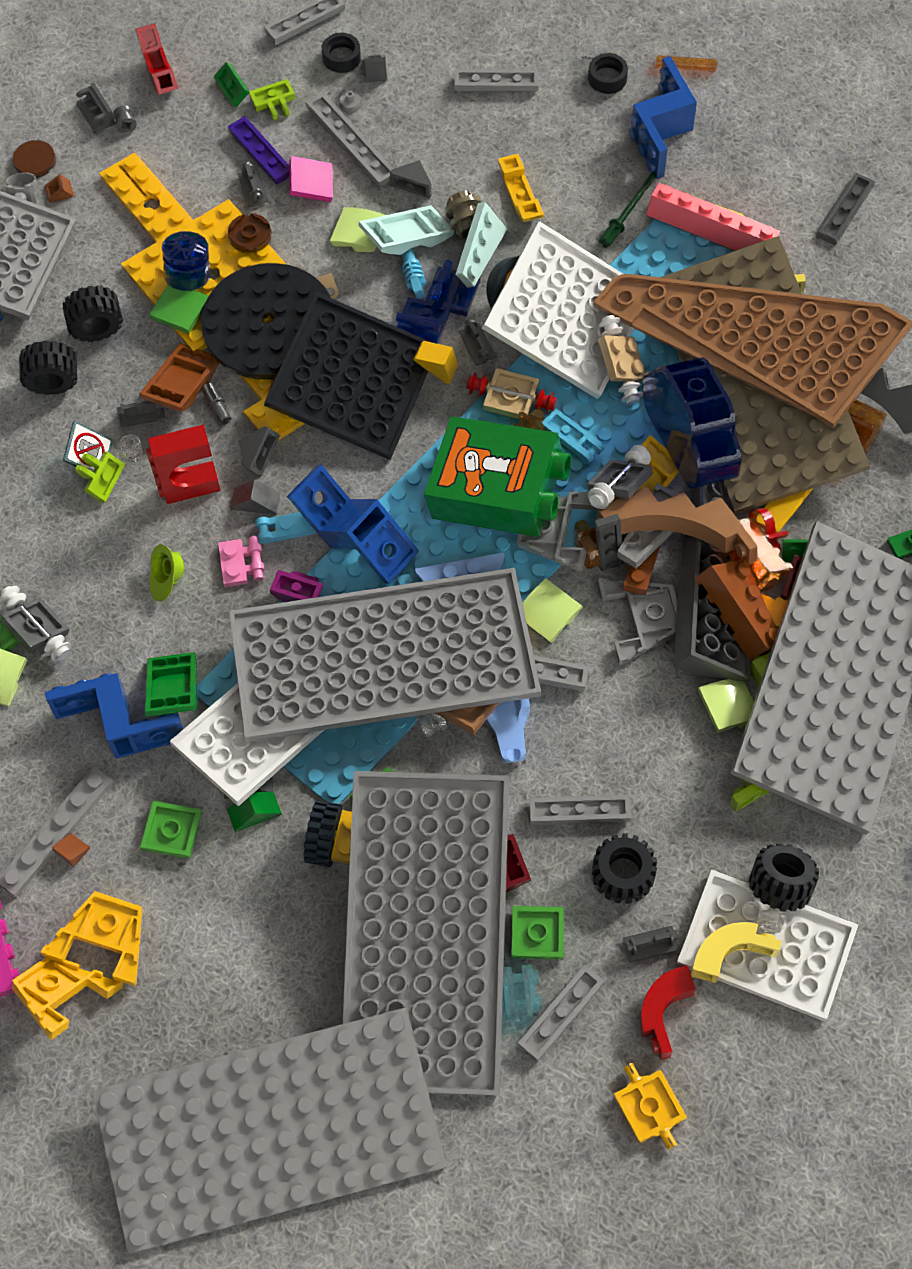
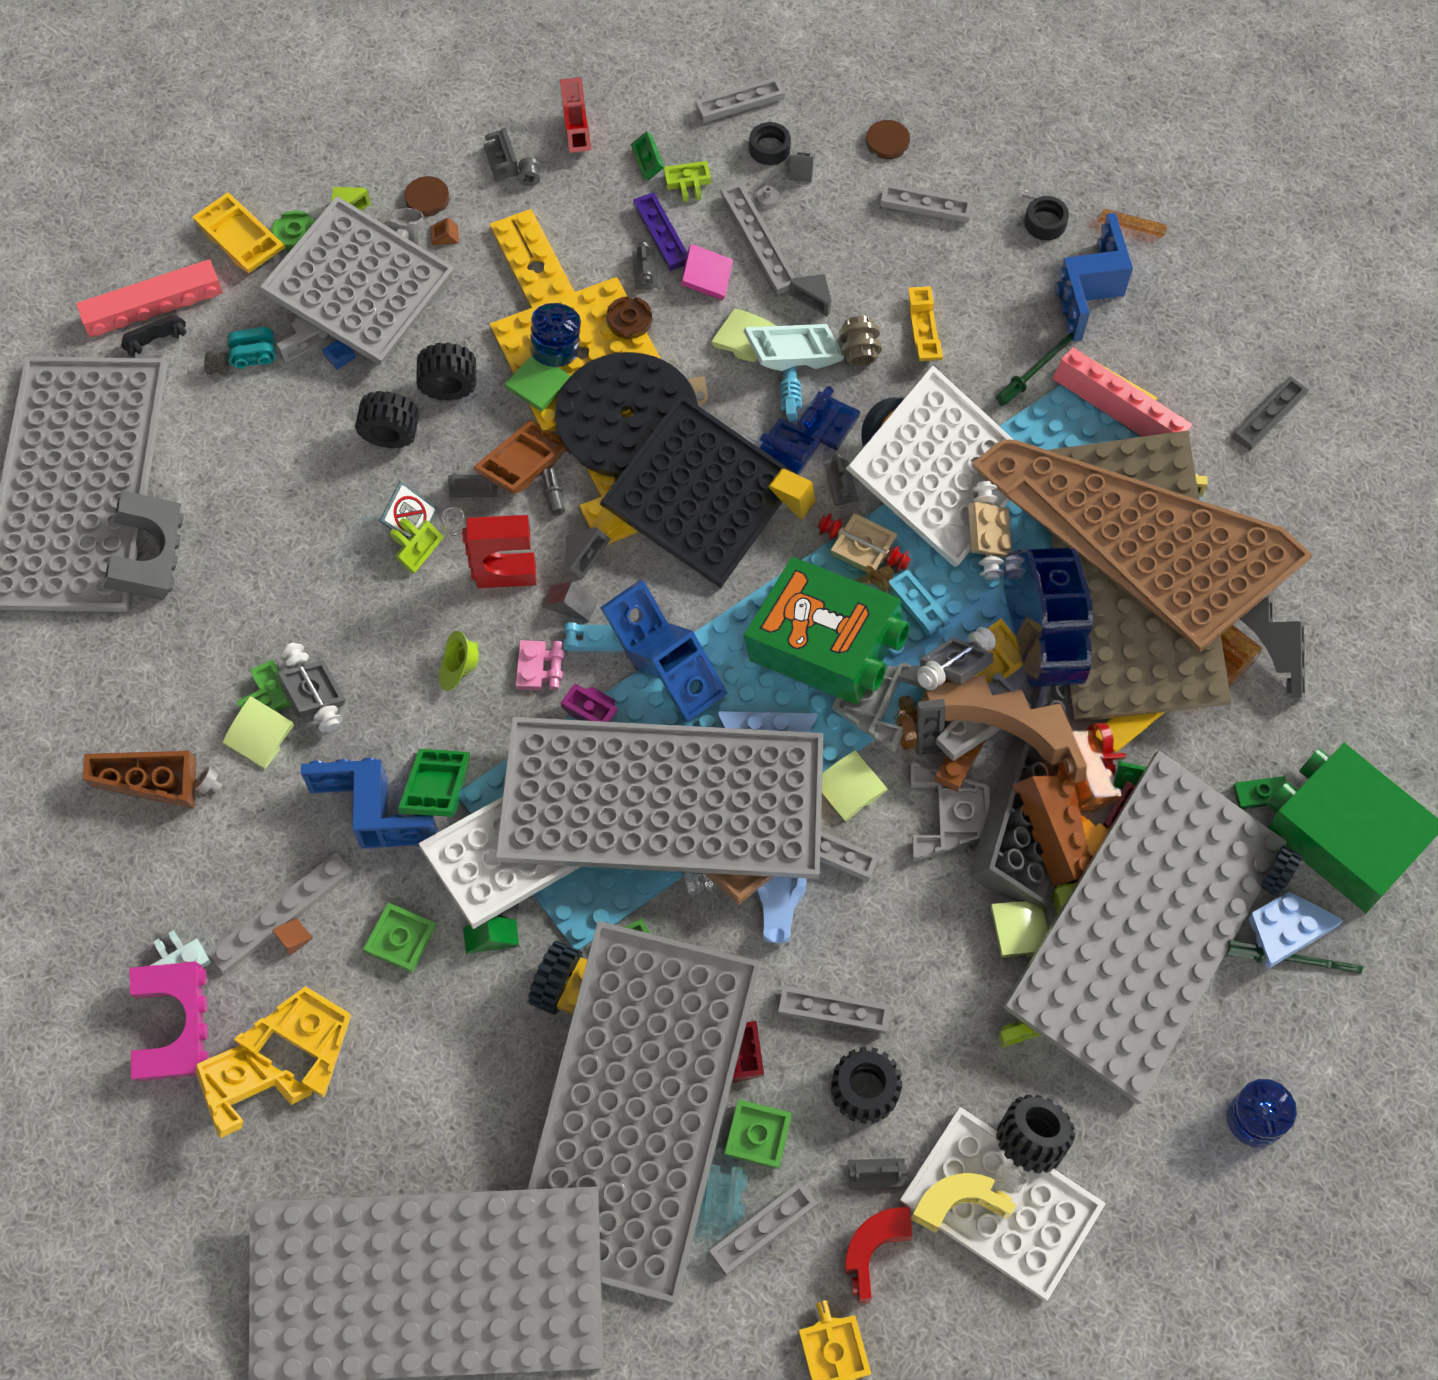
camera: 10 degrees right, 0 degrees up
(448, 29) = (888, 139): none -> reddish brown tile
(480, 245) = (868, 376): light aqua wing -> none

